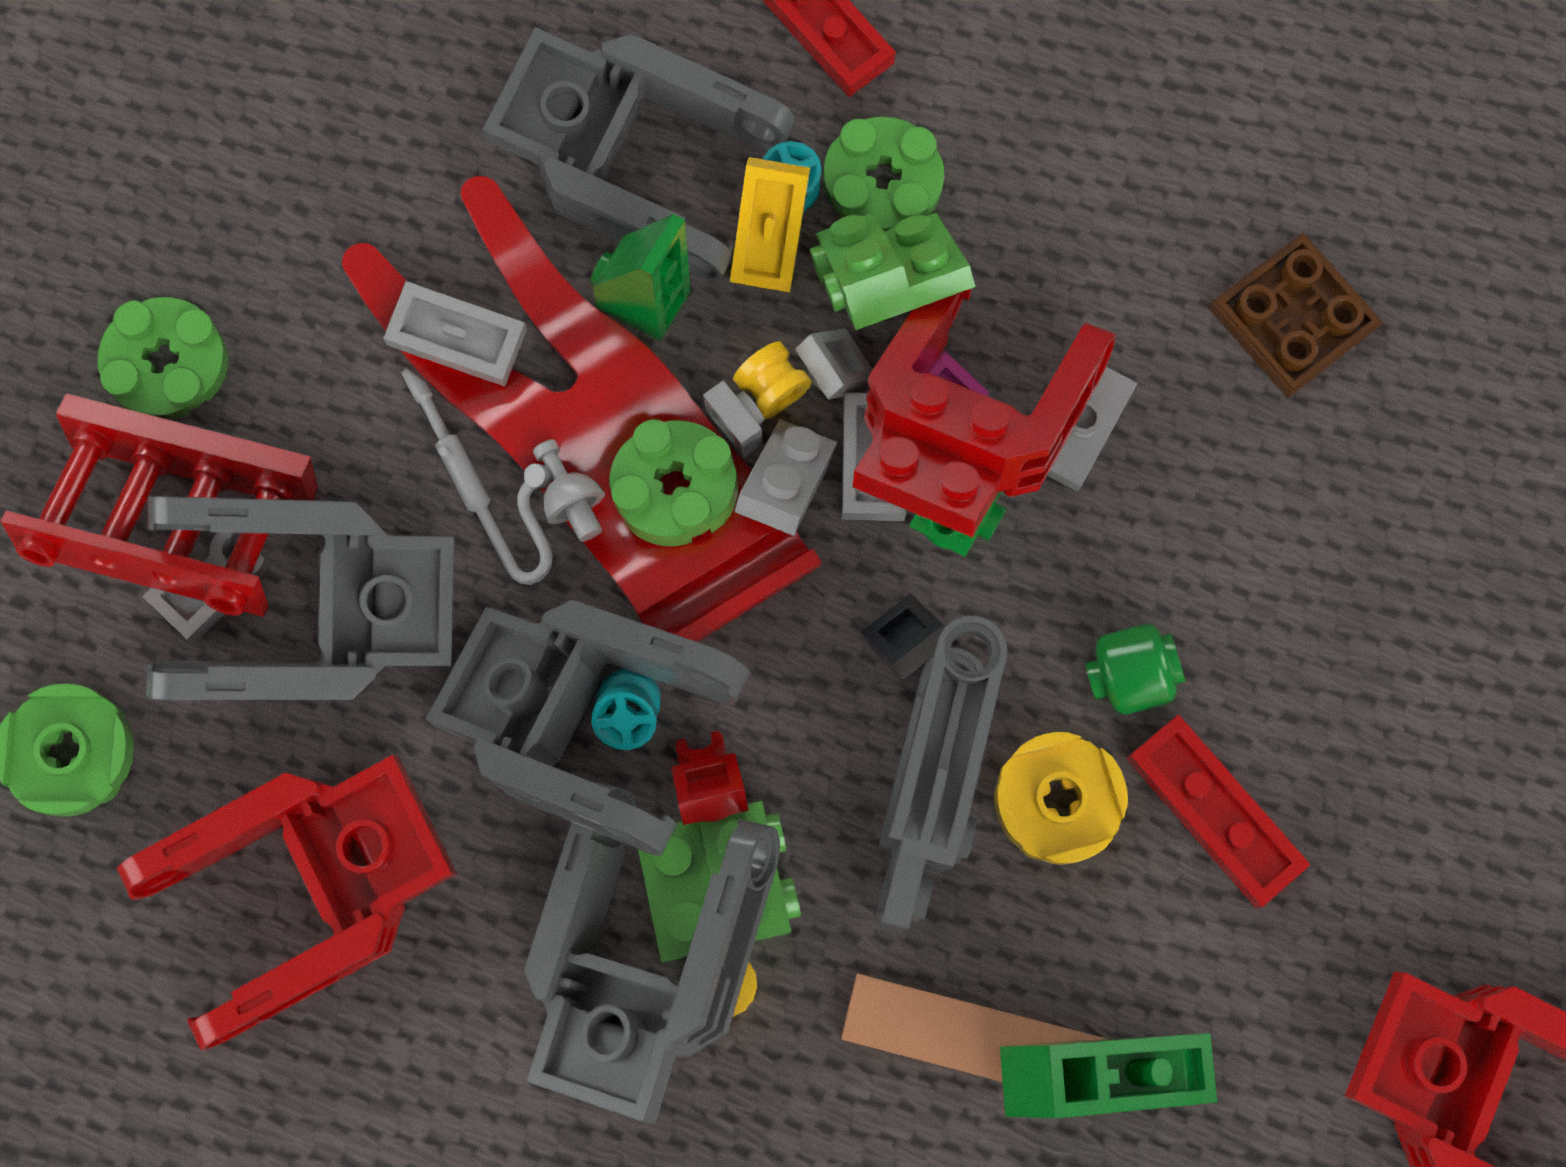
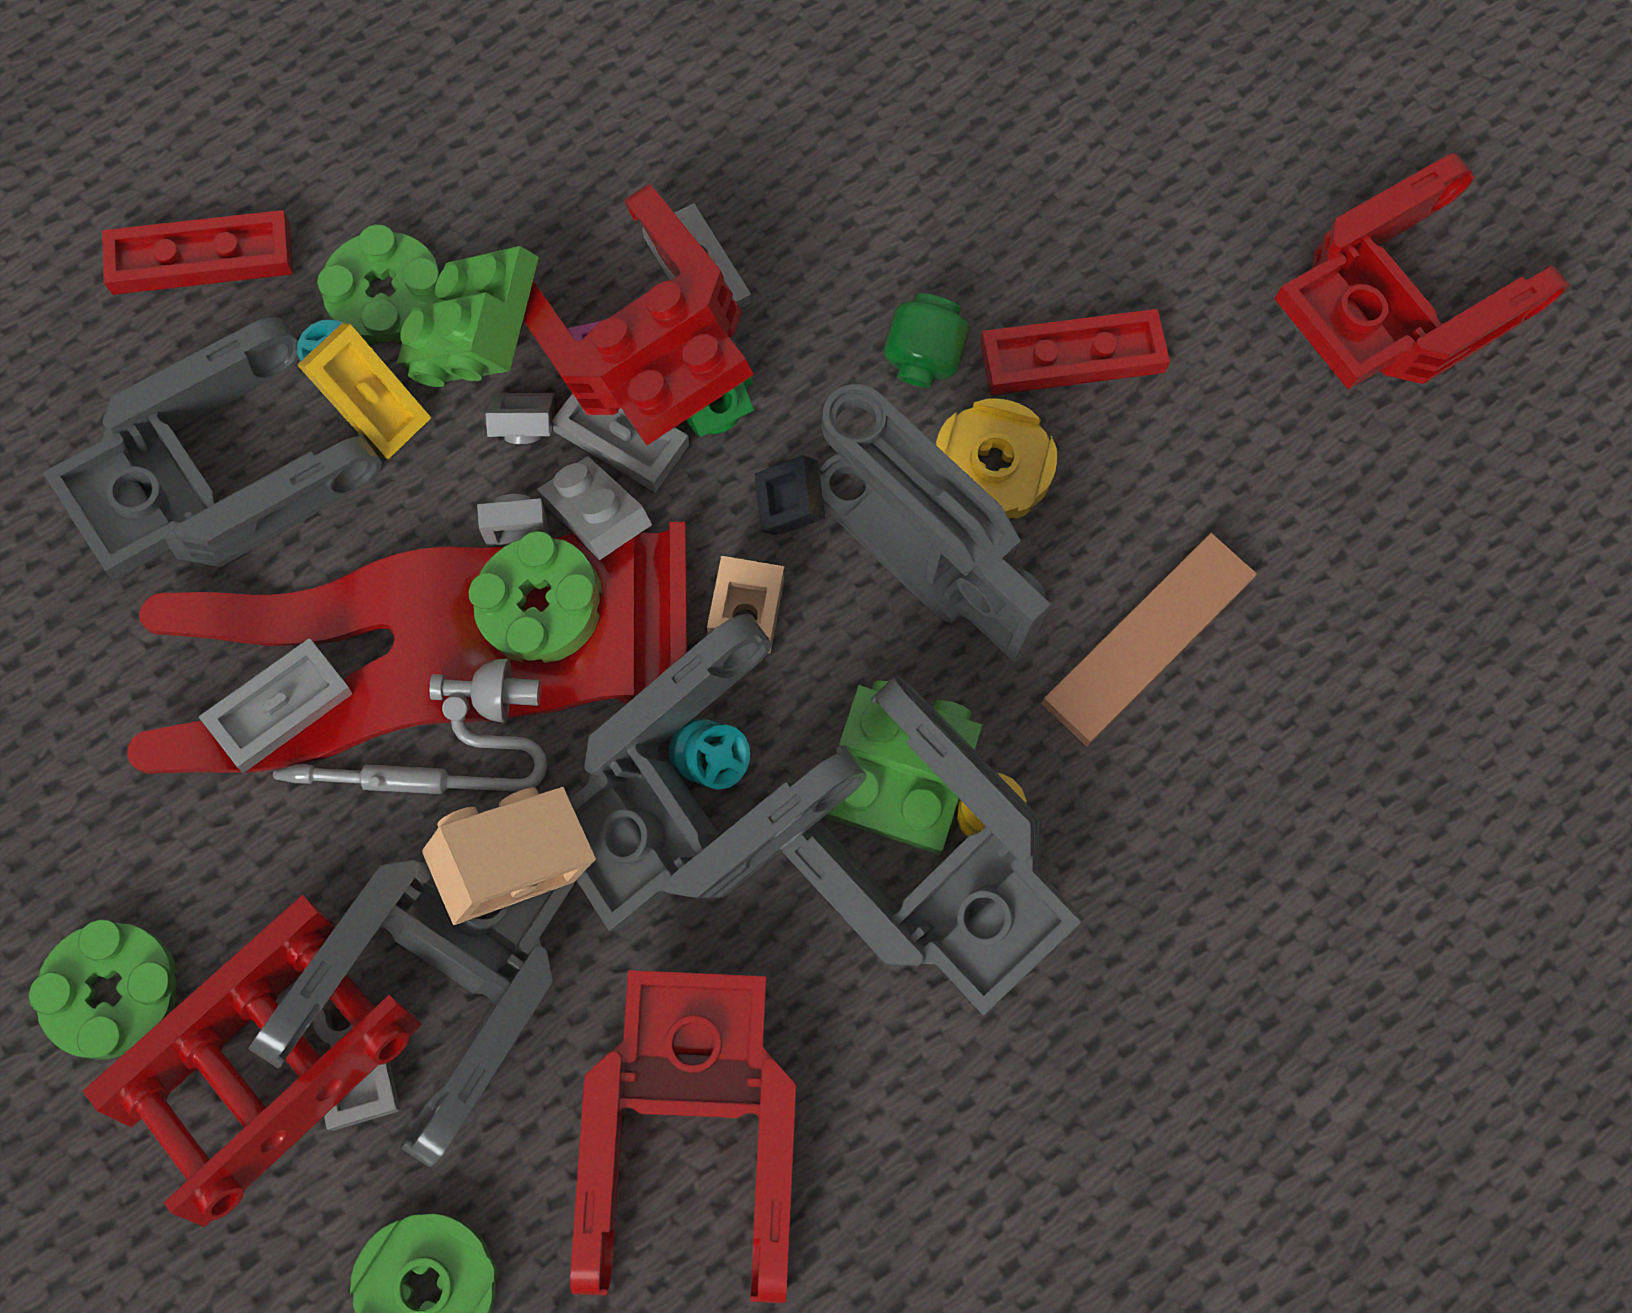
camera: 60 degrees left, 5 degrees down
(431, 596) = (506, 852): none -> light nougat brick
(645, 277) = (337, 512): green slope -> none
(708, 782) = (817, 720): red plate -> none
(772, 379) = (499, 471): yellow wheel -> none
(794, 644) = (750, 587): none -> light nougat brick
(1107, 1075) = (1237, 551): green slope -> none
(1295, 315) = (715, 63): reddish brown tile -> none

